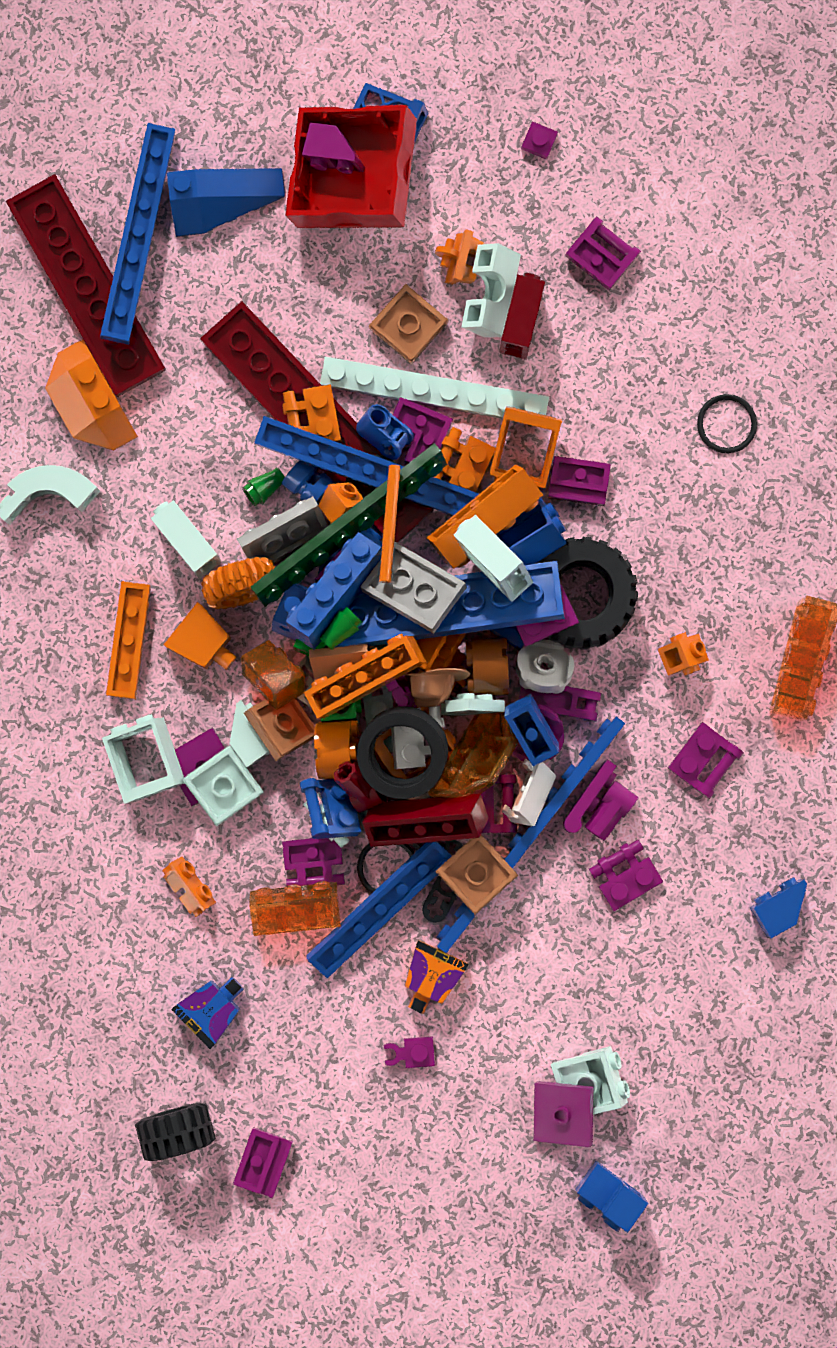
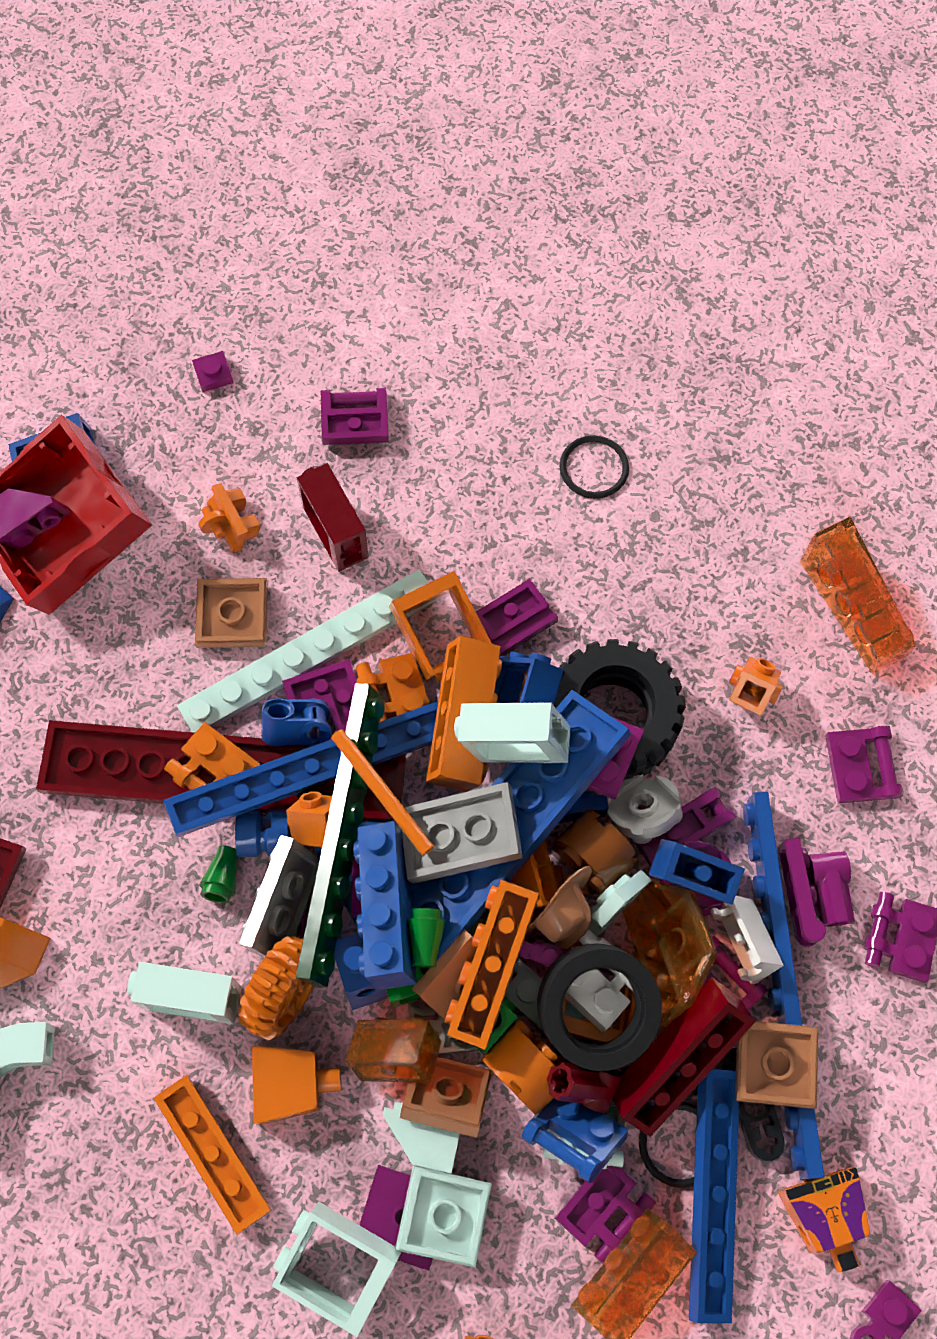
camera: 45 degrees left, 15 degrees down
(499, 270) = (273, 498): light aqua arch -> none

